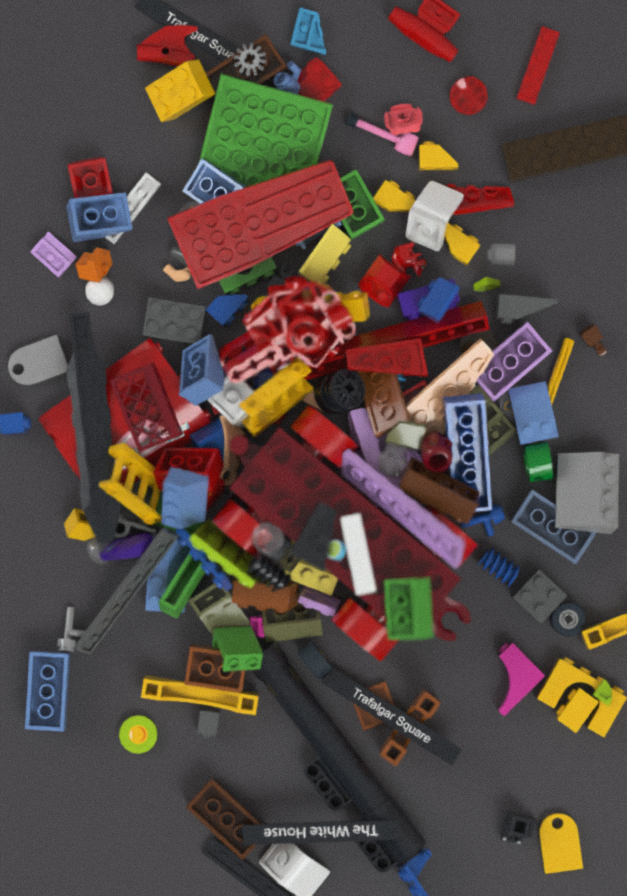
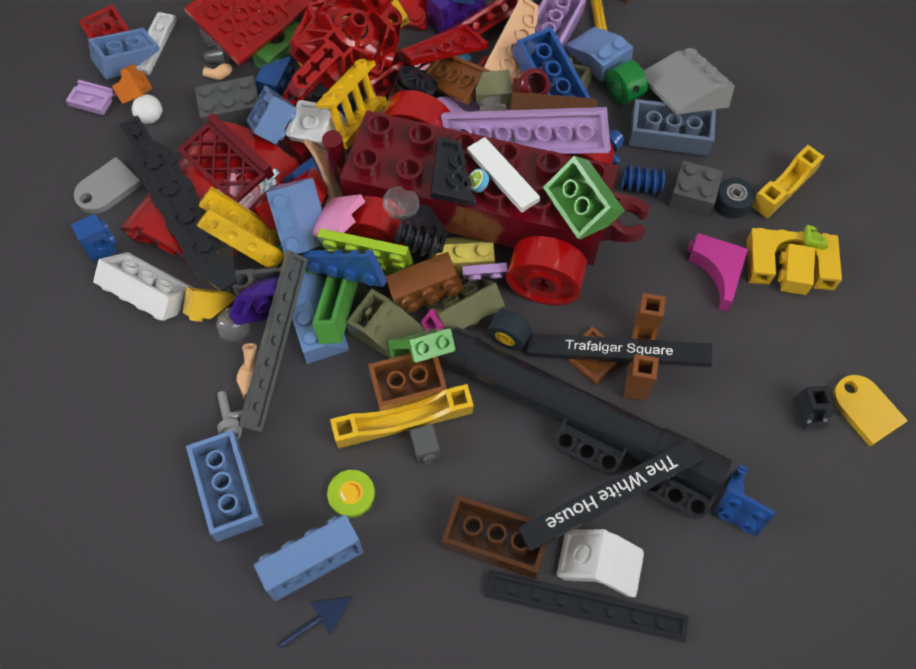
camera: 20 degrees left, 25 degrees down
(41, 482) = (141, 285): none -> white slope
(88, 775) = (308, 557): none -> medium blue brick
(88, 814) = (328, 612): none -> dark blue piece
(97, 601) = (246, 370): none -> light nougat arm
(214, 517) = (337, 214): none -> bright pink slope

